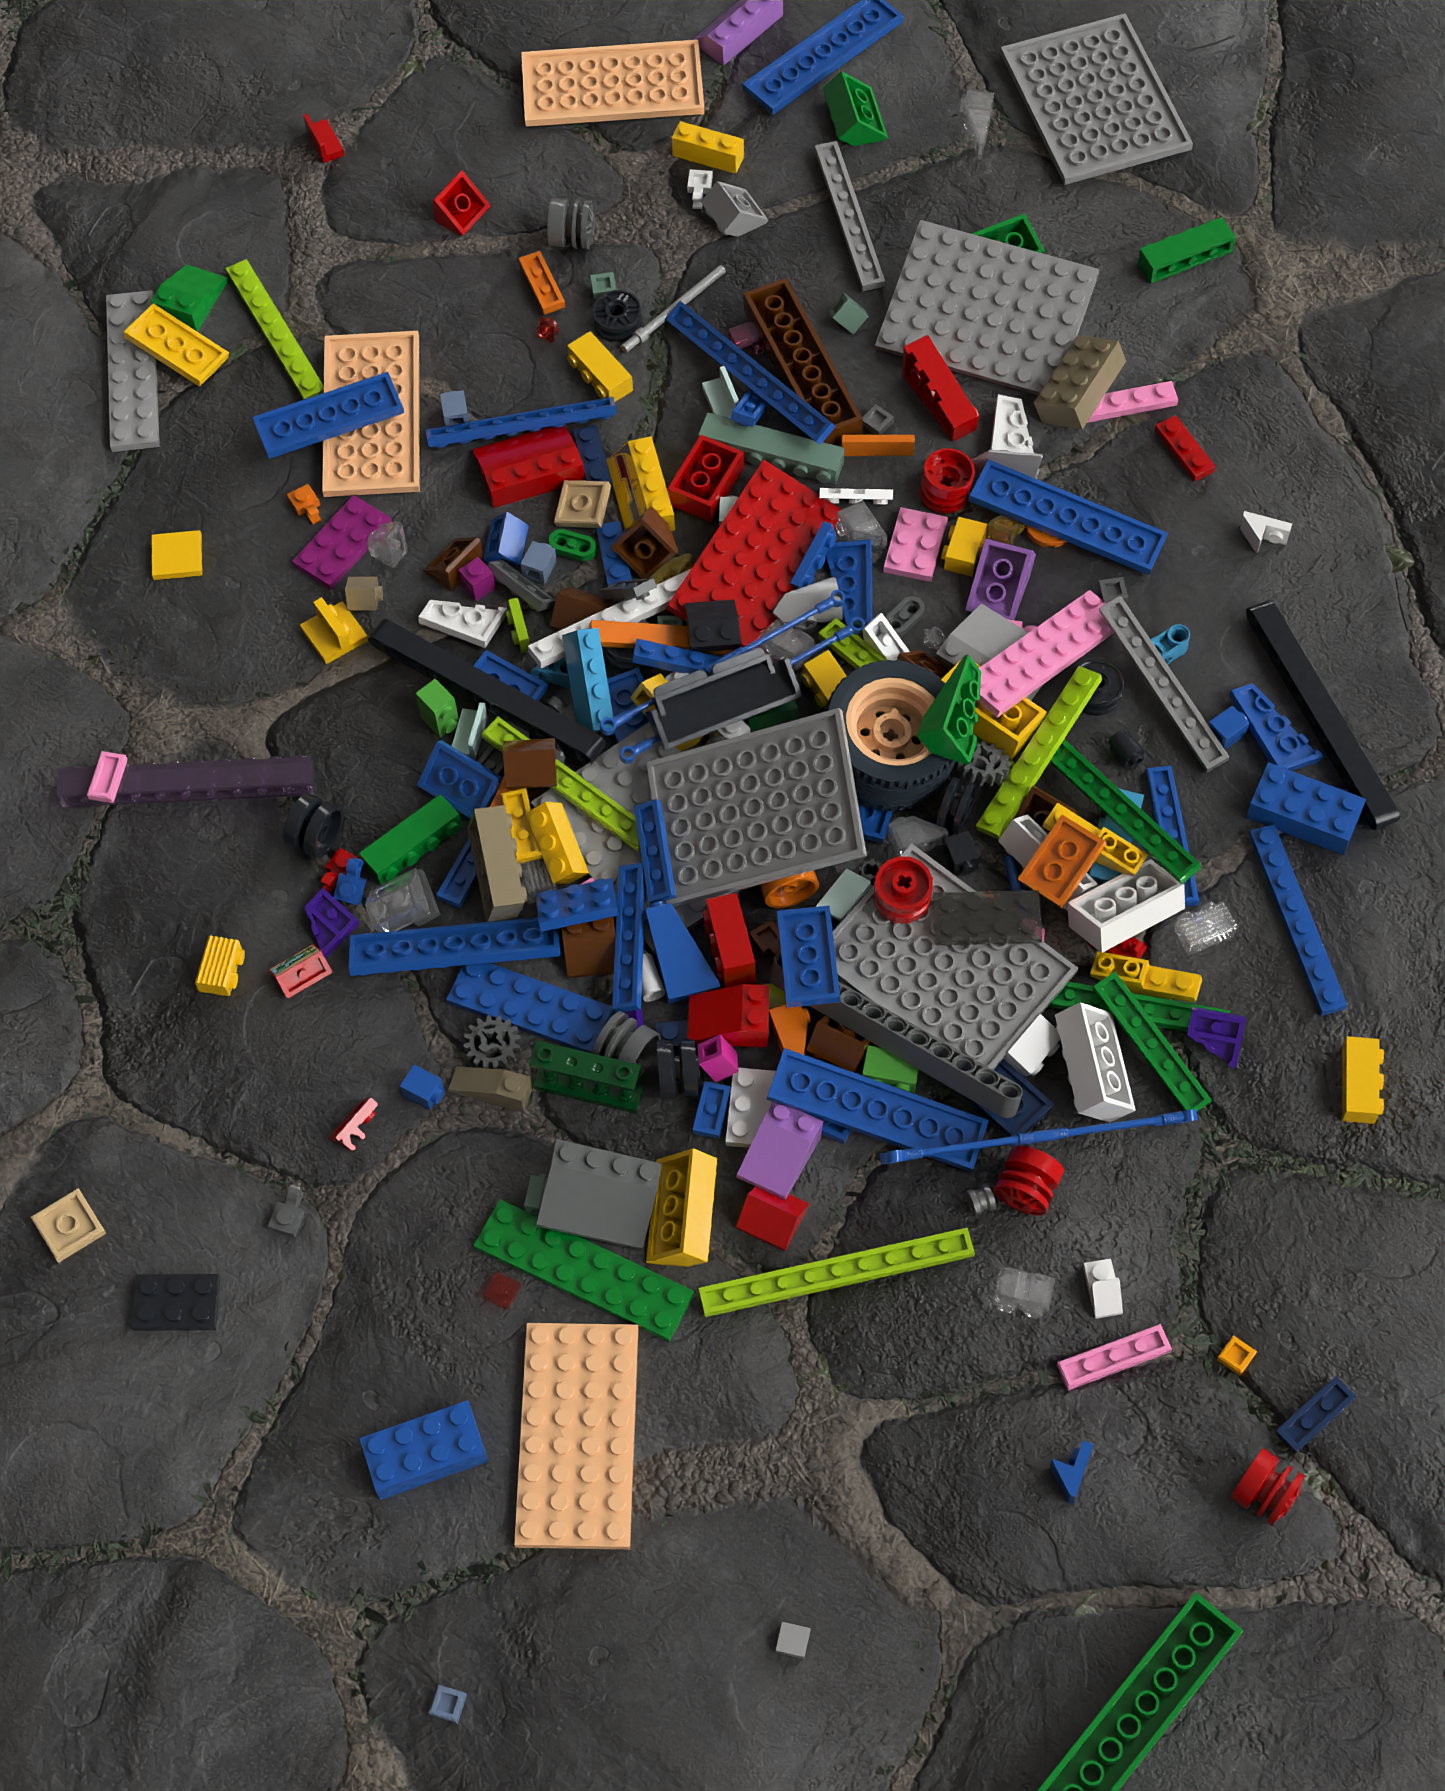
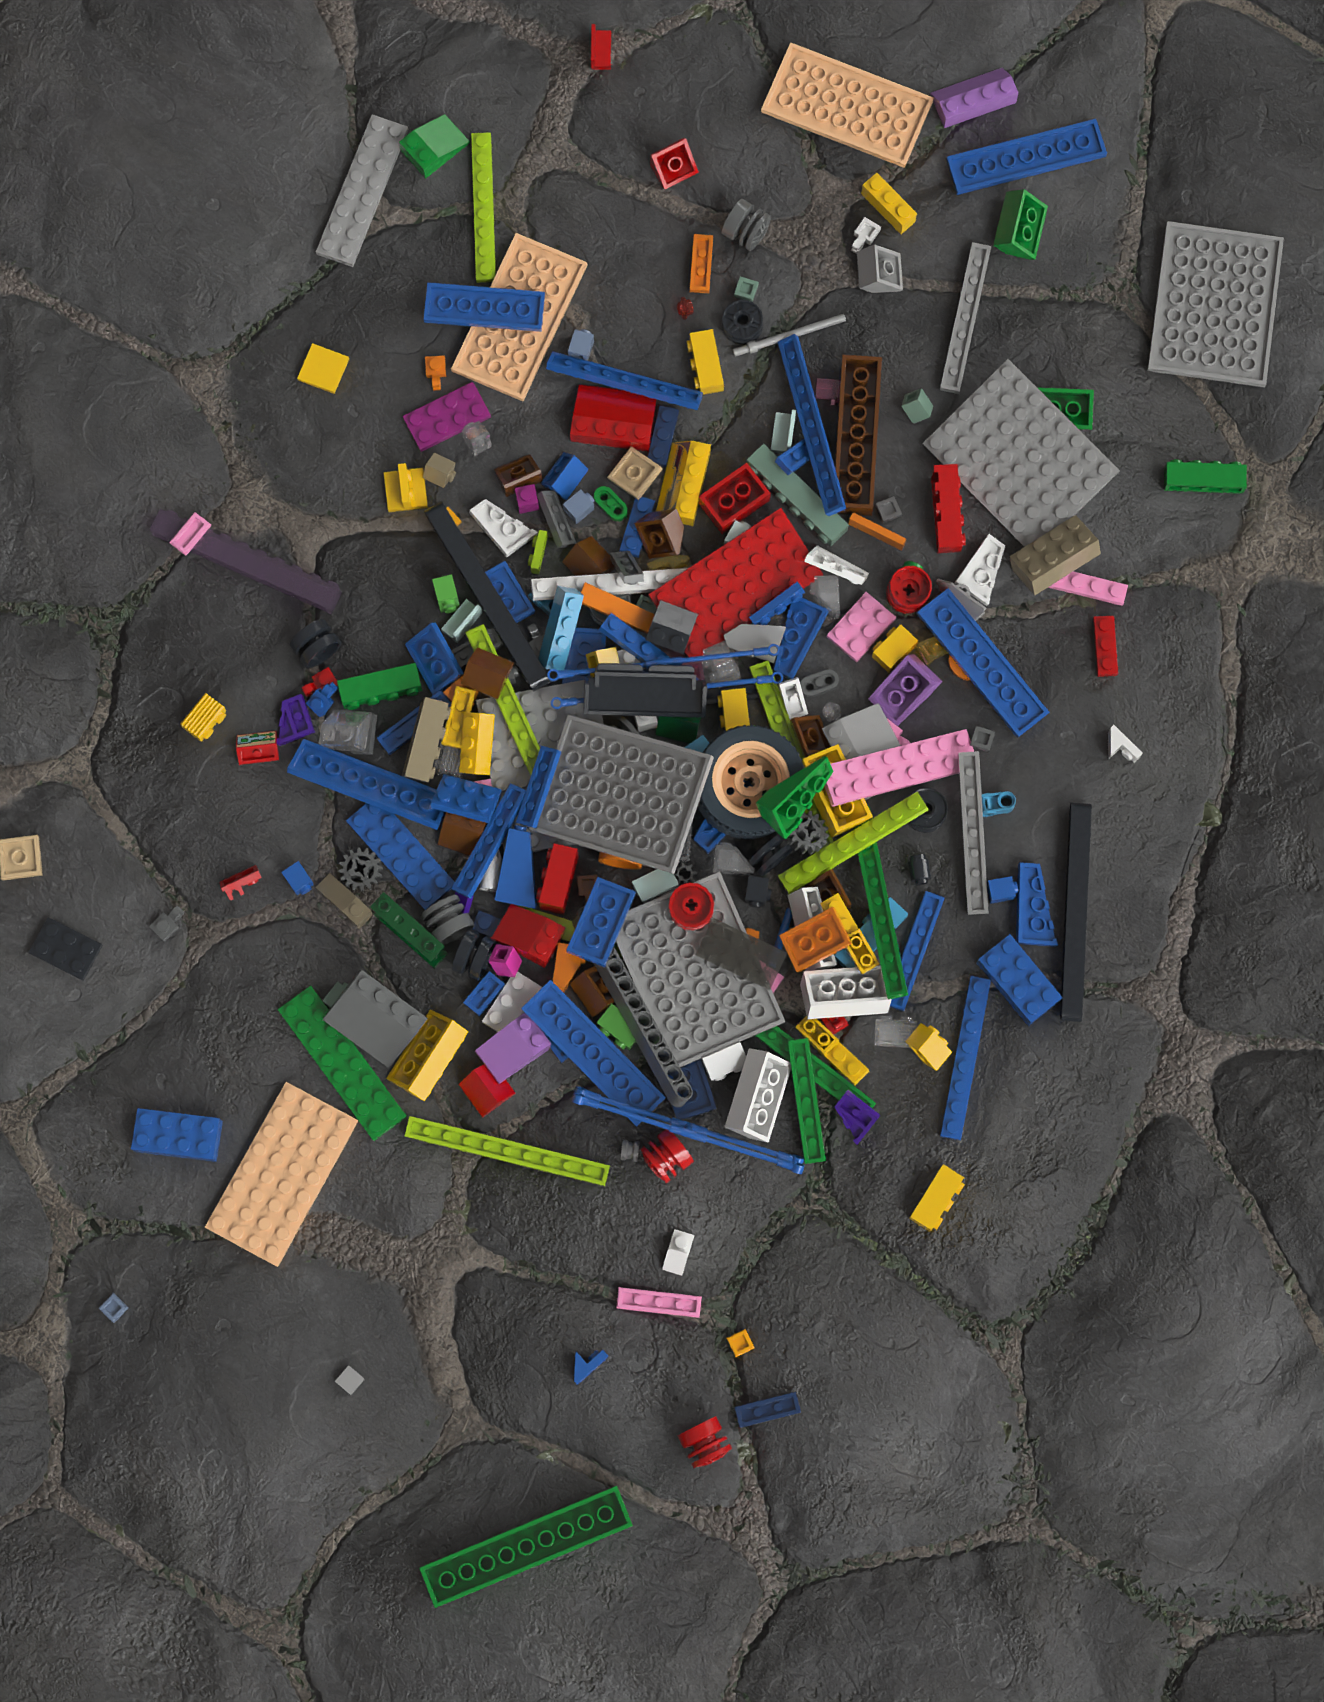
camera: 25 degrees right, 15 degrees up
(176, 344) = (402, 187): yellow plate -> none
(502, 1290) = (281, 1050): clear red plate -> none
(977, 114) = (1114, 274): clear slope -> none
(1023, 1292) = (622, 1229): clear brick -> none
(1252, 919) = (929, 1046): none -> yellow brick

